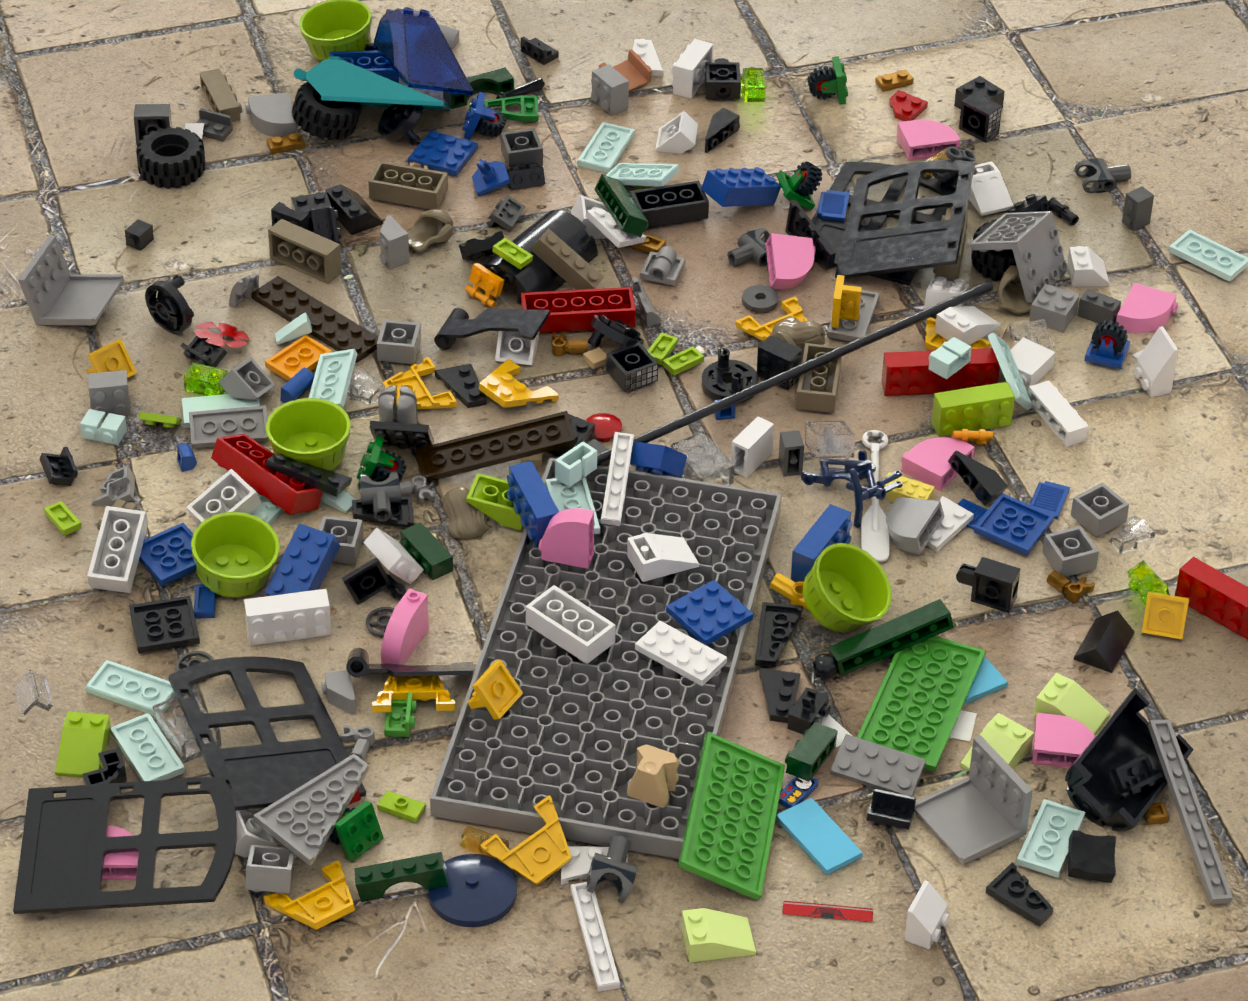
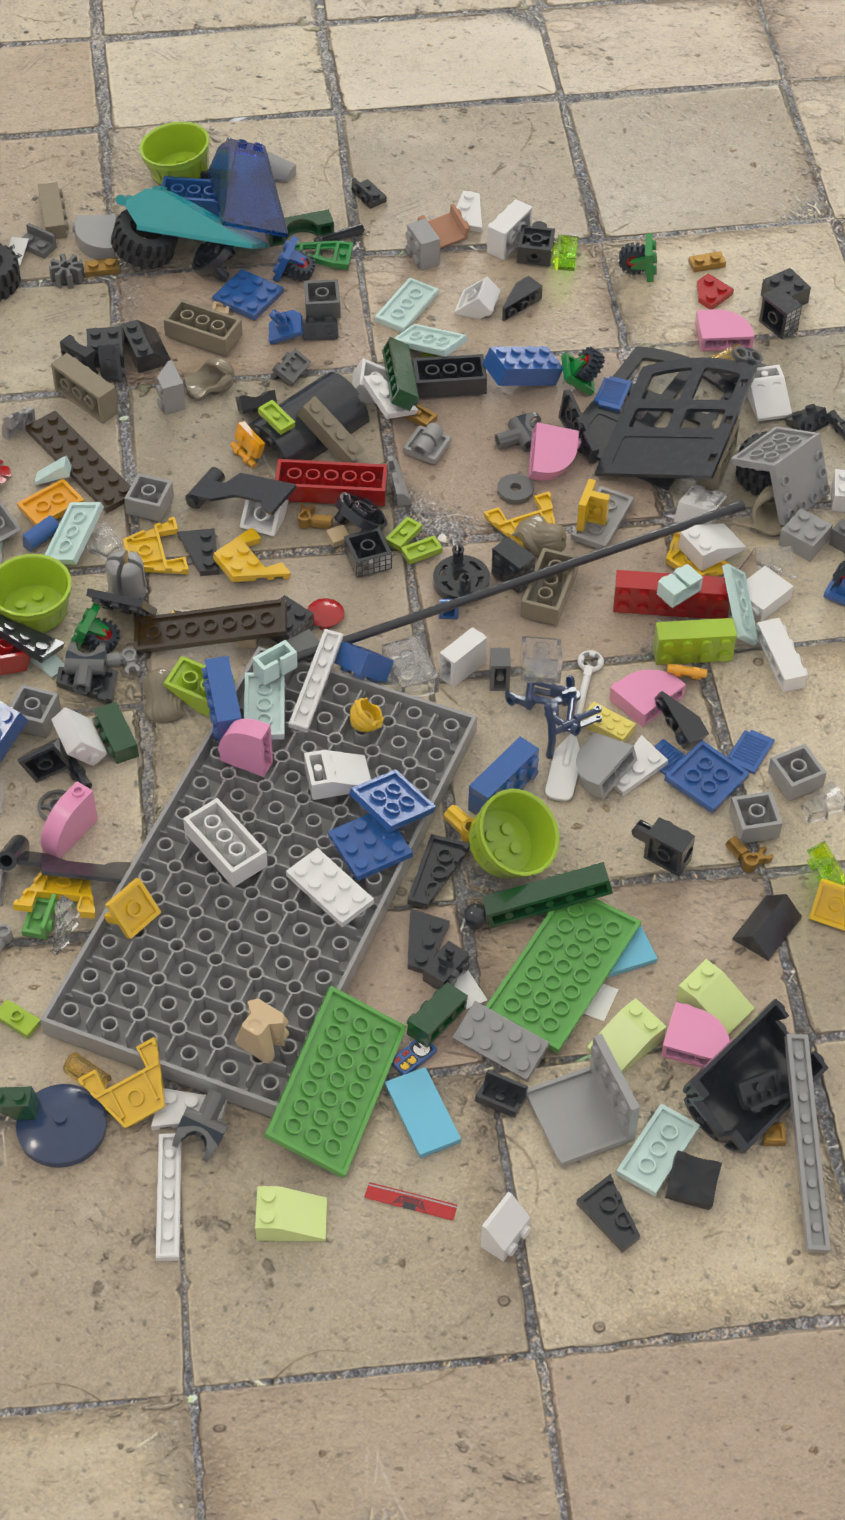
camera: 10 degrees right, 10 degrees up
(251, 149) = (66, 271): none -> dark grey gear
(428, 709) = (65, 923): none -> clear slope
(675, 503) = (365, 716): none -> yellow hair
(722, 571) = (392, 800): none -> blue plate

